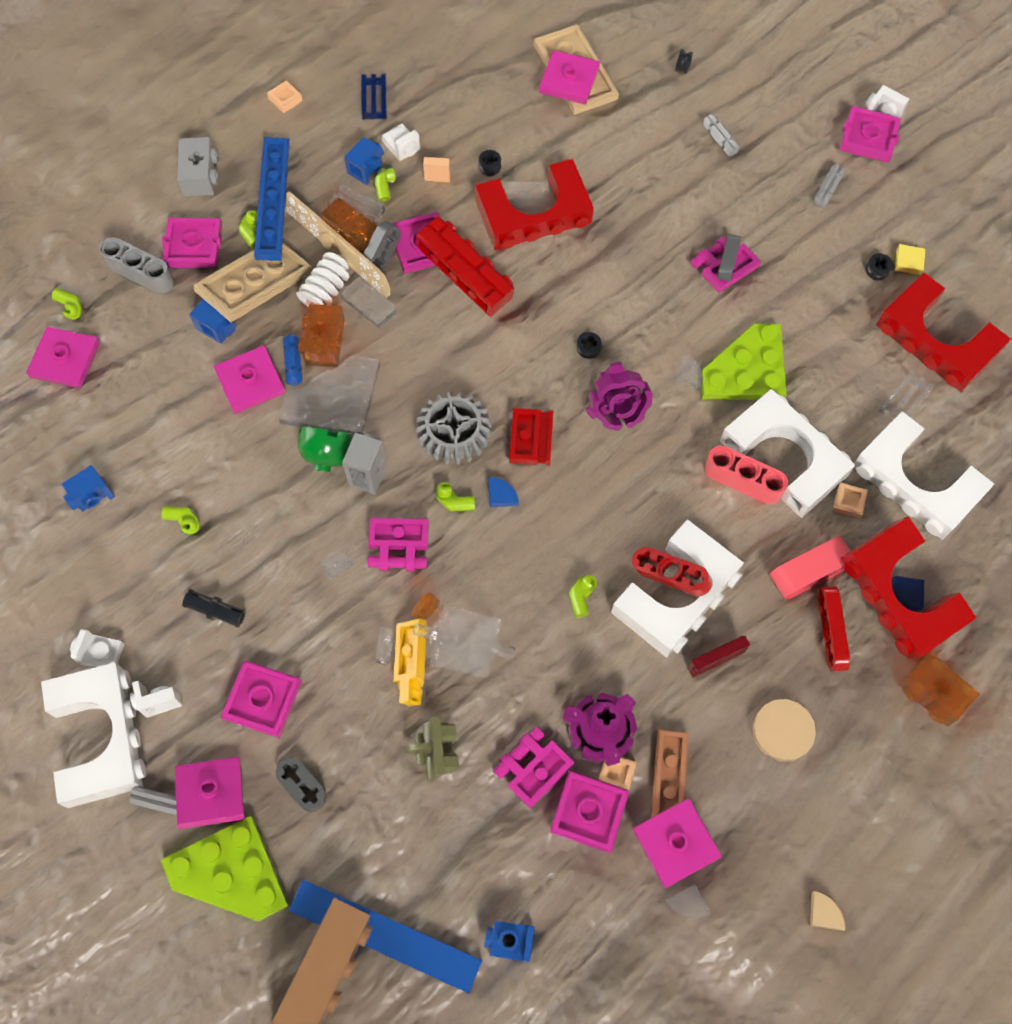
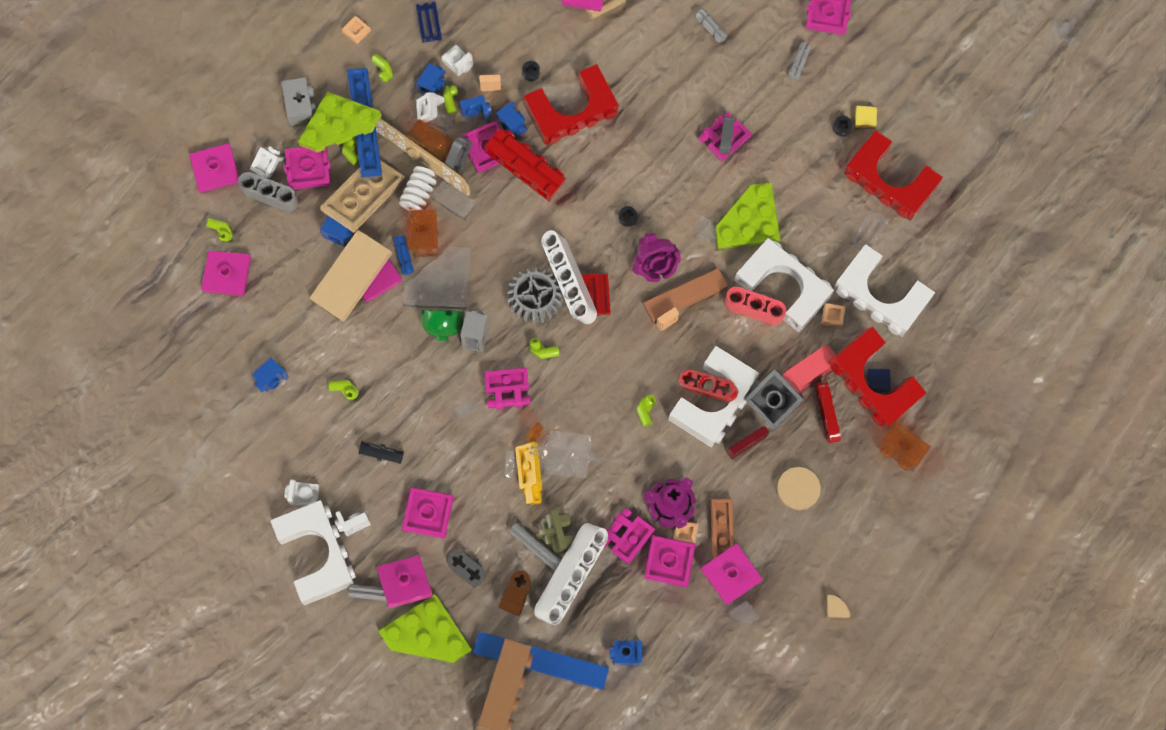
camera: 10 degrees left, 5 degrees up
(77, 232) = (214, 168): none -> dark pink plate
(142, 229) = (266, 161): none -> white bracket
(218, 376) = (350, 275): none -> tan tile
(237, 191) = (337, 122): none -> lime plate
(310, 136) = (381, 62): none -> lime arm
(354, 185) = (427, 106): none -> white bracket
(361, 837) = (514, 596): none -> reddish brown piece
(405, 767) = (535, 546): none -> light grey axle
(413, 193) = (474, 106): none -> blue bracket
(445, 813) = (571, 573): none -> white beam
(459, 214) = (511, 120): none -> blue brick
(501, 410) = (574, 283): none -> white beam
(502, 493) = (577, 341): blue tile -> none
(625, 478) = (667, 319): none -> light nougat tile
(653, 451) = (686, 294): none -> nougat tile
(763, 600) = (775, 399): none -> dark grey slope

